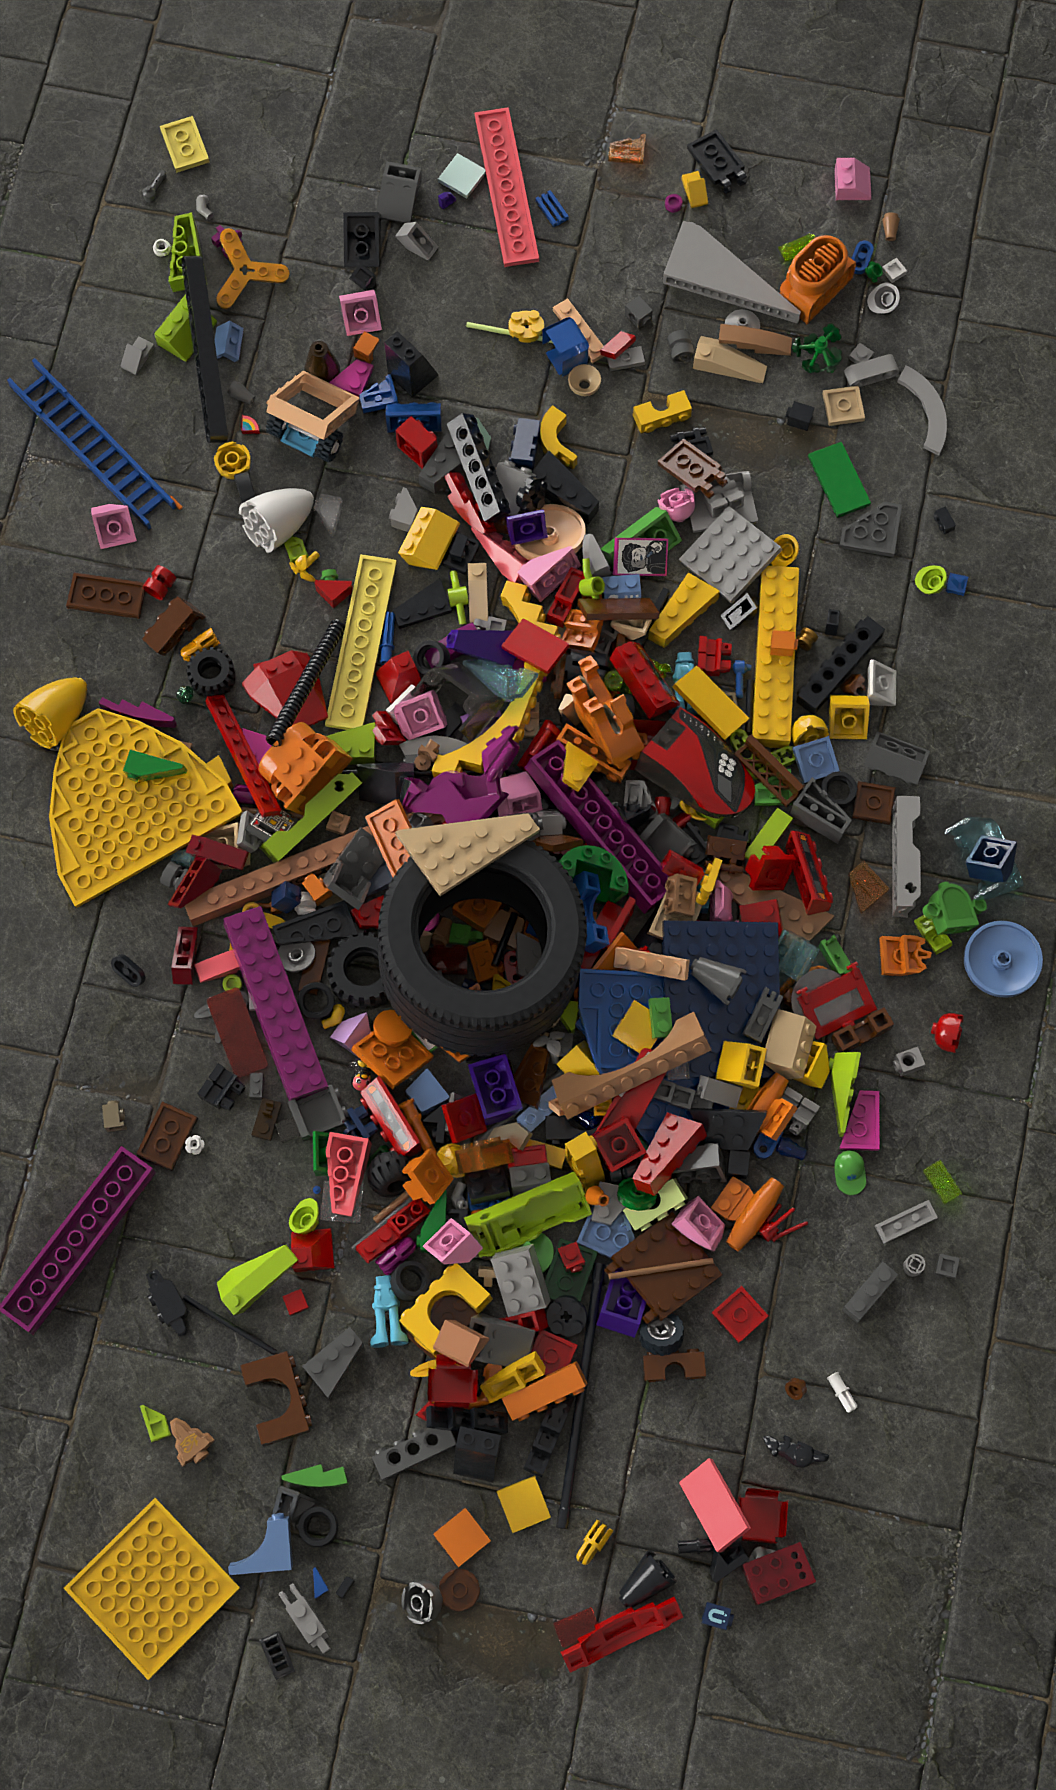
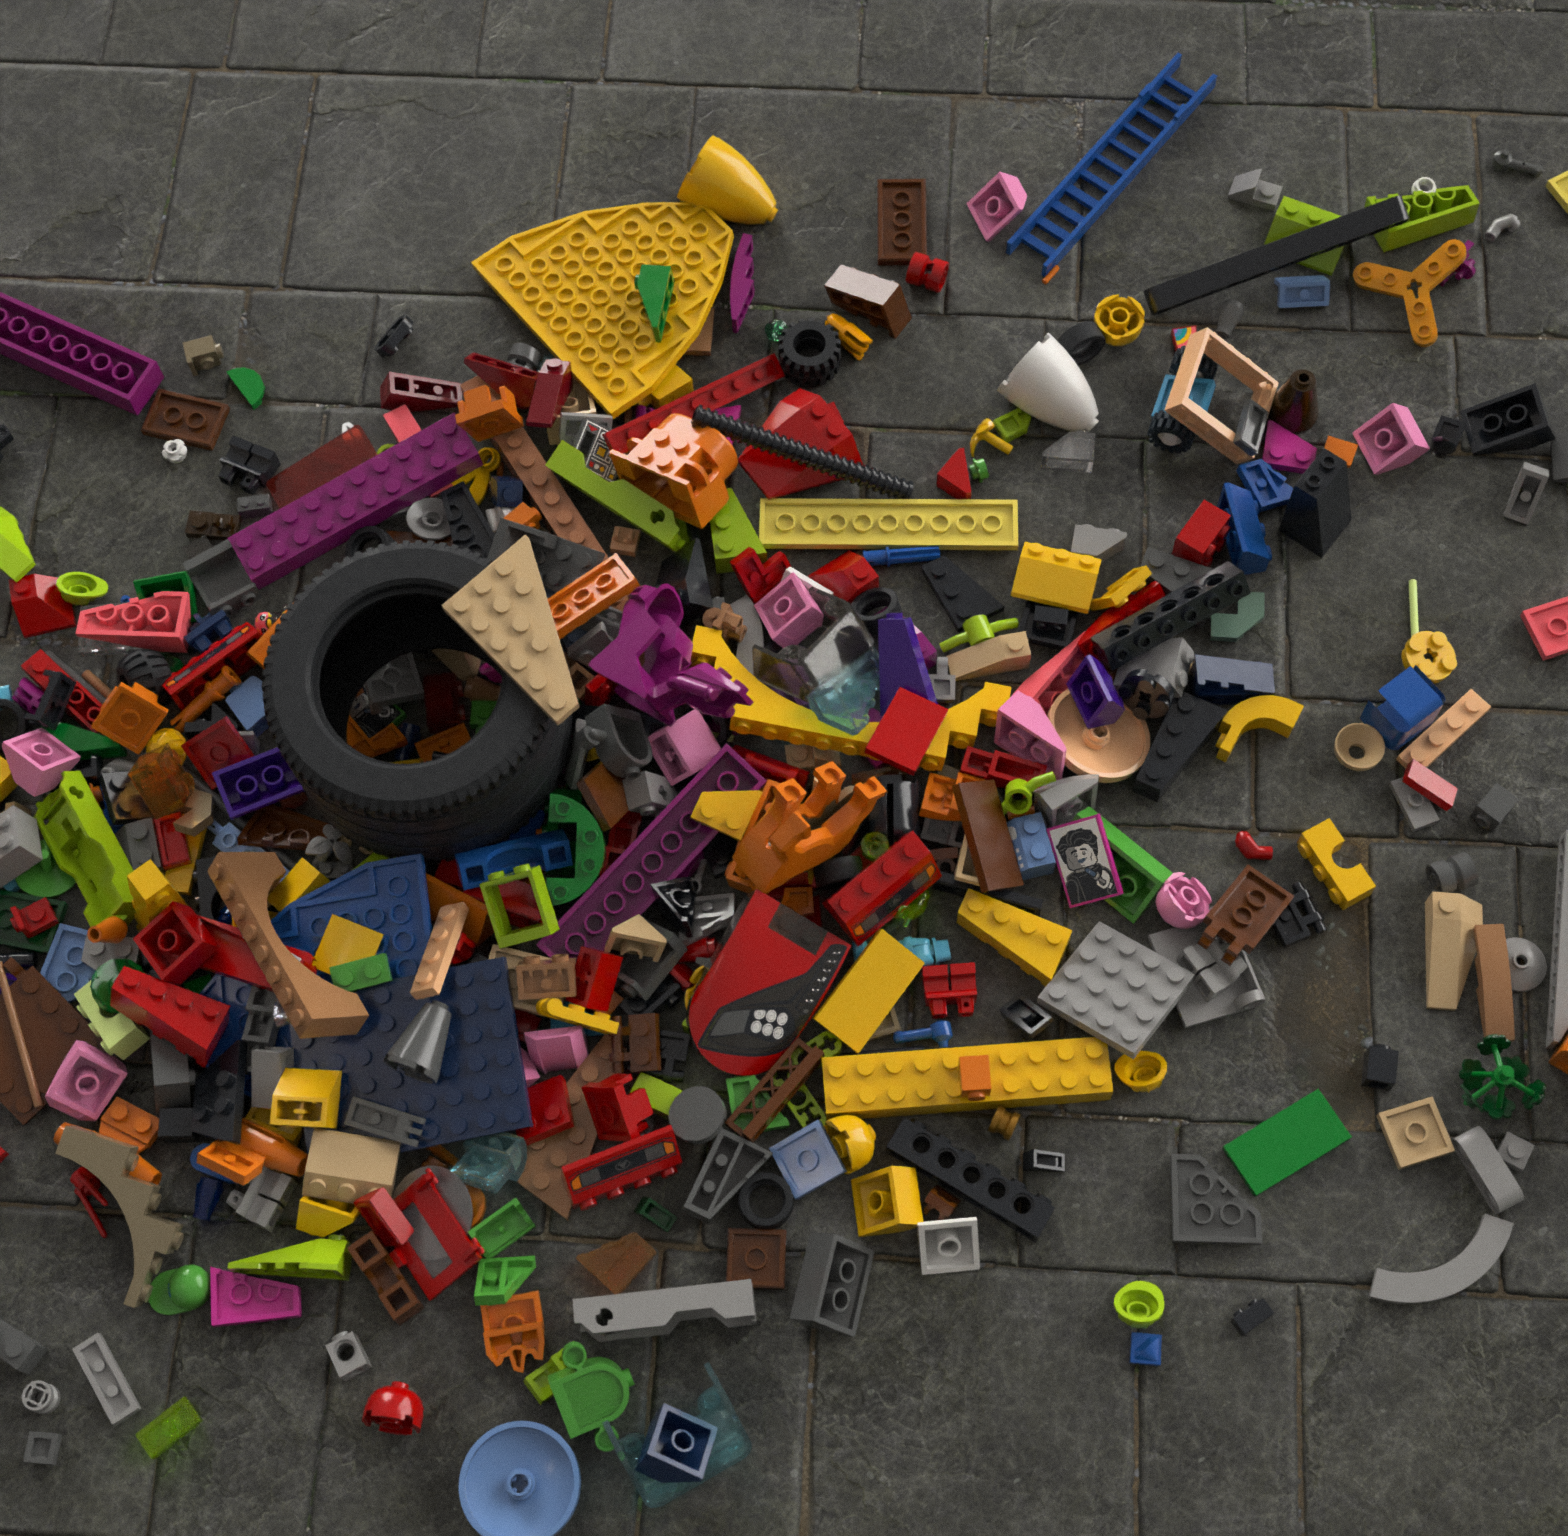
camera: 85 degrees right, 5 degrees down
(146, 1085) = (249, 385): none -> green tile
(229, 893) = (486, 418): none -> orange panel
(339, 392) = (1250, 427): none -> dark grey tile
(404, 1236) = (53, 701): none -> black hinge
(446, 497) = (1119, 590): none -> yellow wing
(643, 460) = (1250, 849): none -> red arm
(645, 907) = (497, 913): none -> lime window
(656, 839) = (636, 938): none -> tan slope
(767, 1200) = (150, 1234): none -> dark tan arch
(782, 817) = (697, 1115): none -> dark grey tile
(824, 1026) = (384, 1217): none -> red slope
(836, 861) = (655, 1213): none -> dark green piece
(871, 958) = (501, 1278): none -> bright green wing

